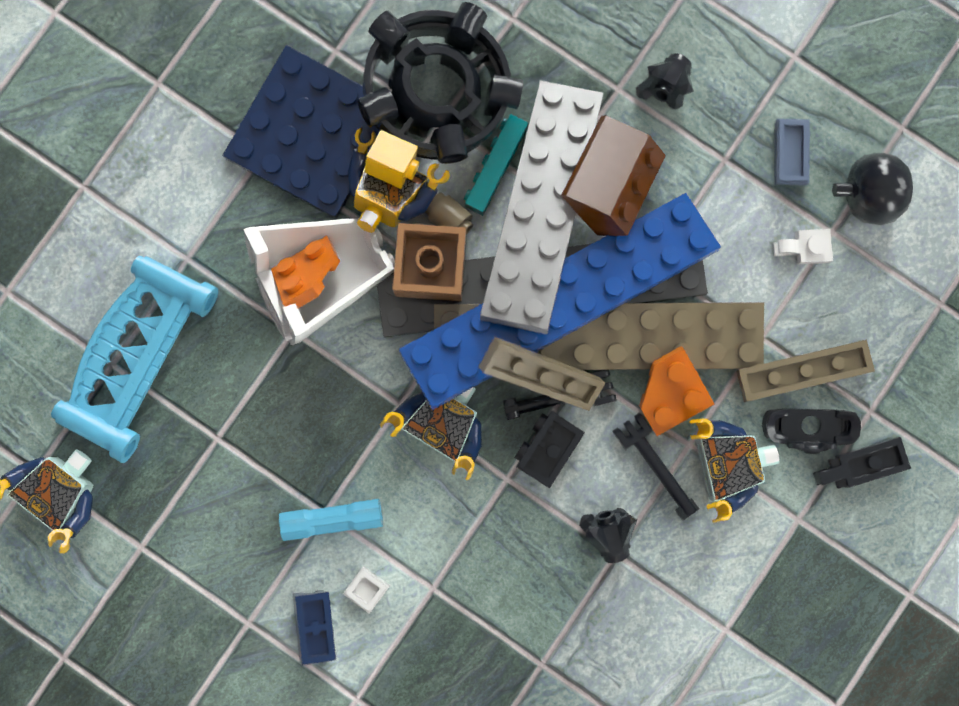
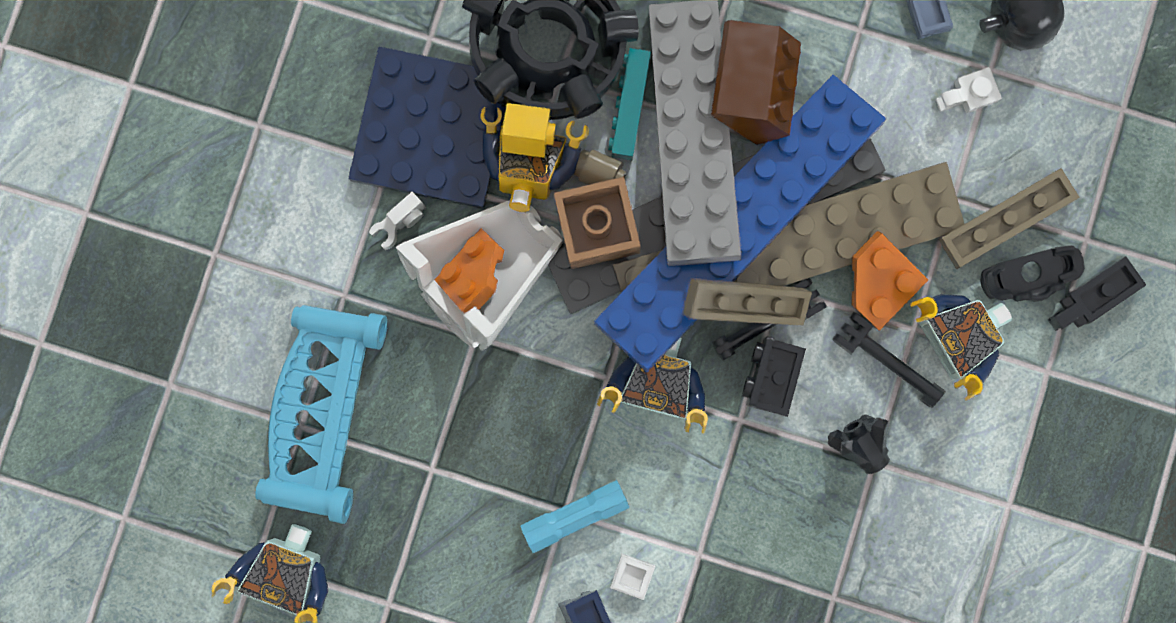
camera: 10 degrees left, 0 degrees up
(262, 201) = (404, 214): none -> white plate

